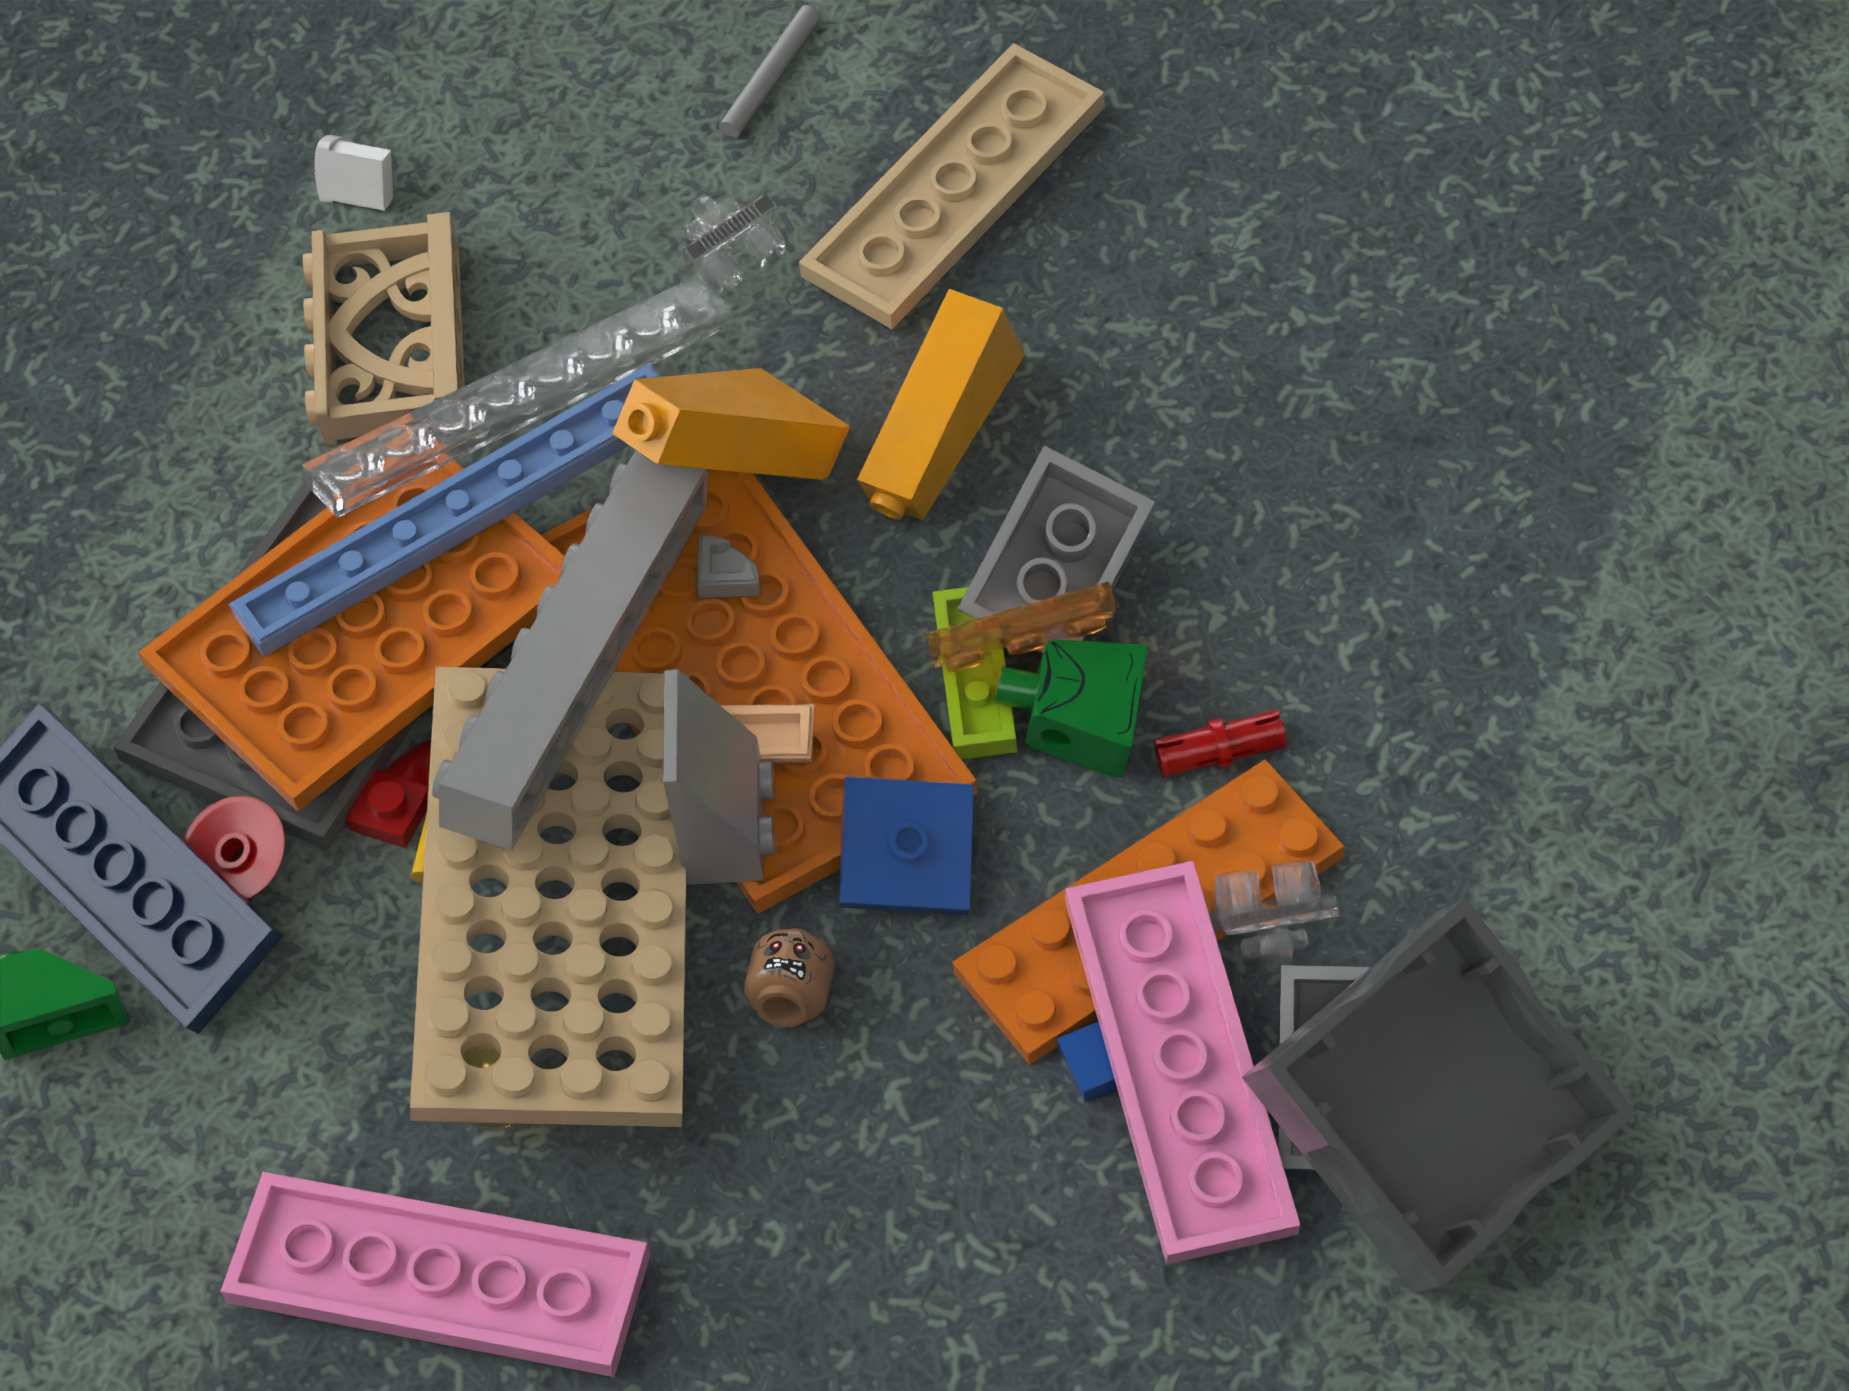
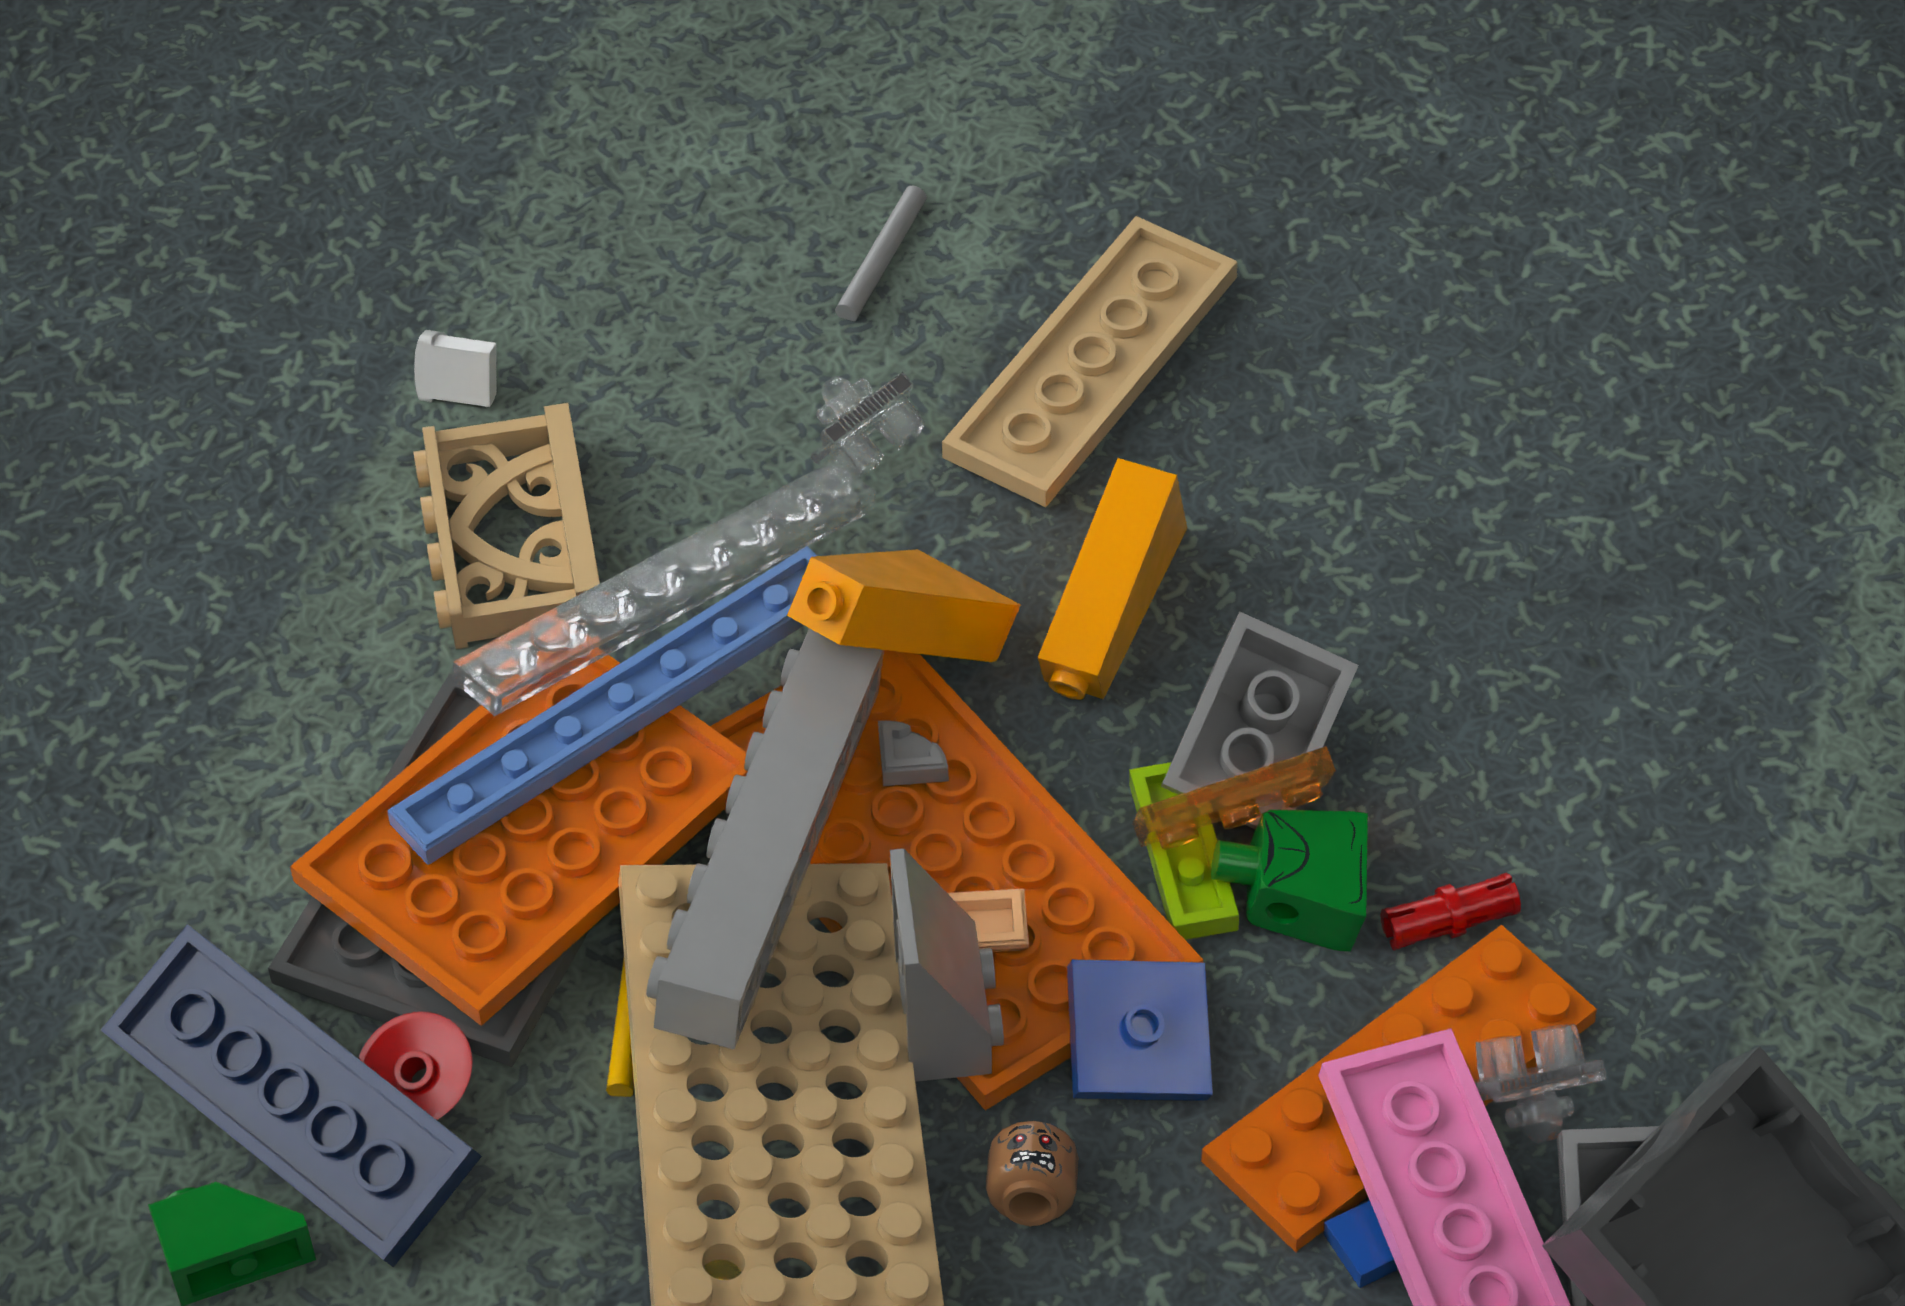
camera: 10 degrees left, 5 degrees down
(394, 799) = (580, 1007): red plate -> none

